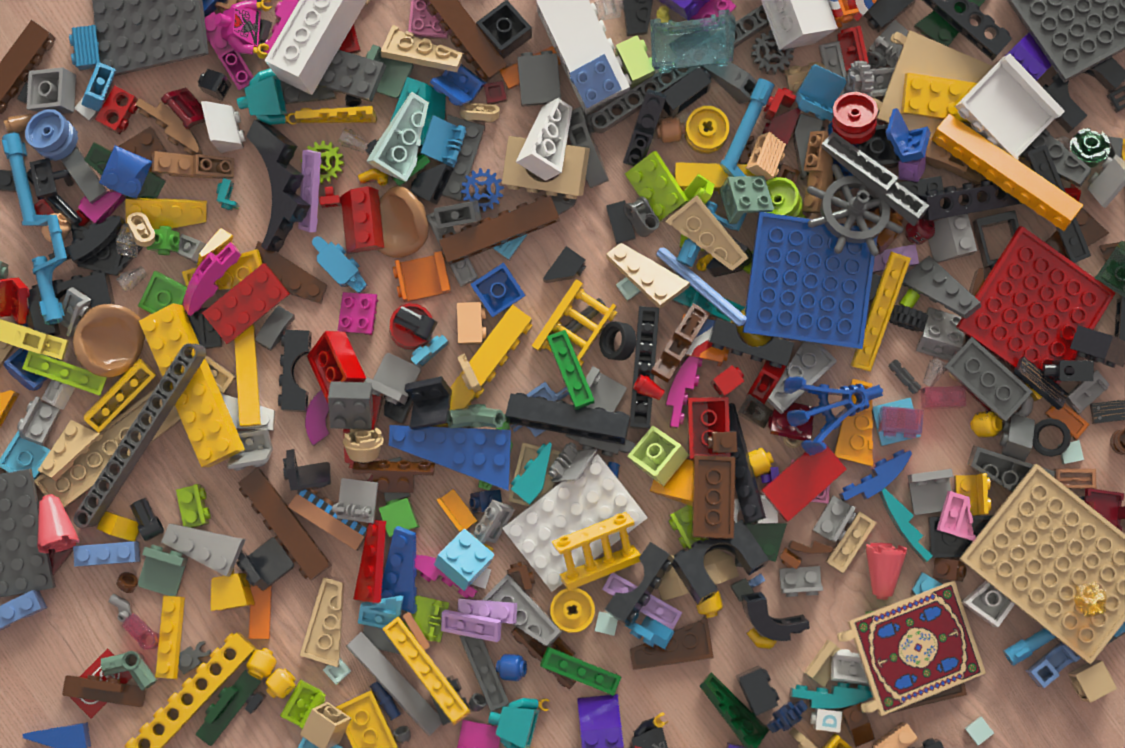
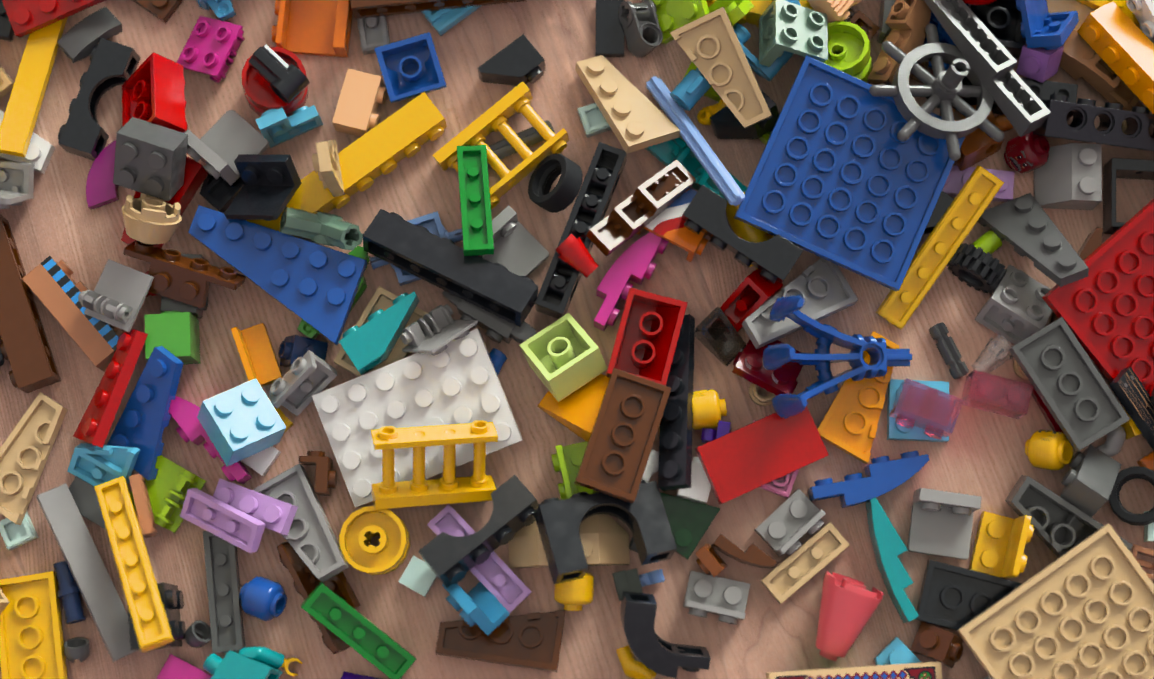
camera: 15 degrees right, 5 degrees down
(305, 476) = (53, 244): black bracket -> none
(722, 442) = (660, 362): reddish brown bracket -> none
(728, 381) = (694, 281): red brick -> none
(956, 516) = (970, 569): bright pink wing -> none

